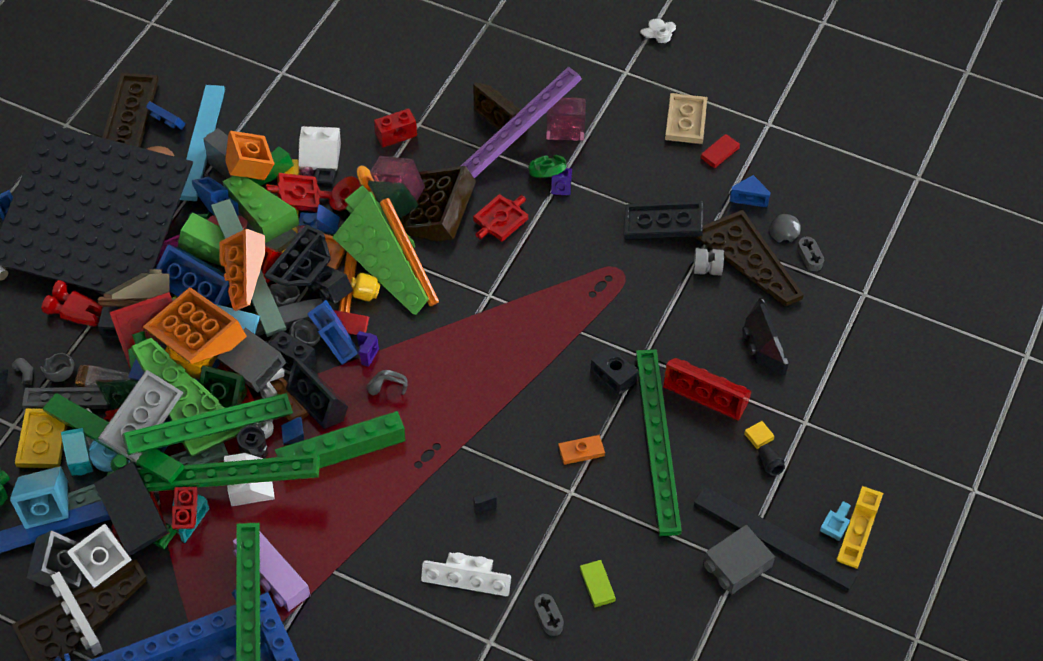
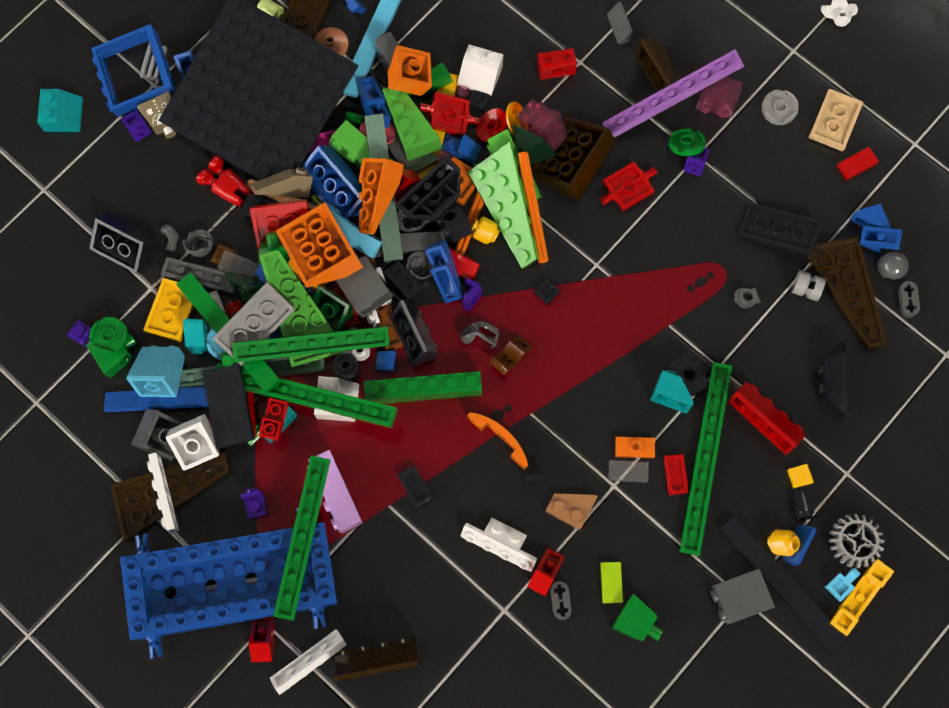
camera: 20 degrees right, 20 degrees up
(182, 603) = (255, 503): none -> dark purple bracket
(357, 544) = (414, 486): none -> black tile
(413, 461) = (482, 421): none -> orange slope
(426, 393) = (511, 354): none -> reddish brown slope
(445, 329) = (547, 292): none -> black tile
(449, 82) = (620, 24): none -> dark grey slope
(524, 589) = (546, 571): none -> red slope
(532, 523) = (571, 508): none -> medium nougat wing
(581, 474) = (628, 471): none -> clear tile
(604, 385) = (672, 392): none -> teal slope
(628, 120) = (779, 107): none -> light grey tile
(632, 464) = (676, 474): none -> red tile
(636, 611) = (637, 620): none -> green torso
(651, 288) = (746, 297): none -> dark grey animal
(762, 204) = (878, 238): none -> blue slope
(763, 496) = (783, 542): none -> yellow head
(779, 497) = (805, 537): none -> blue slope
(842, 470) = (862, 526): none -> light grey gear

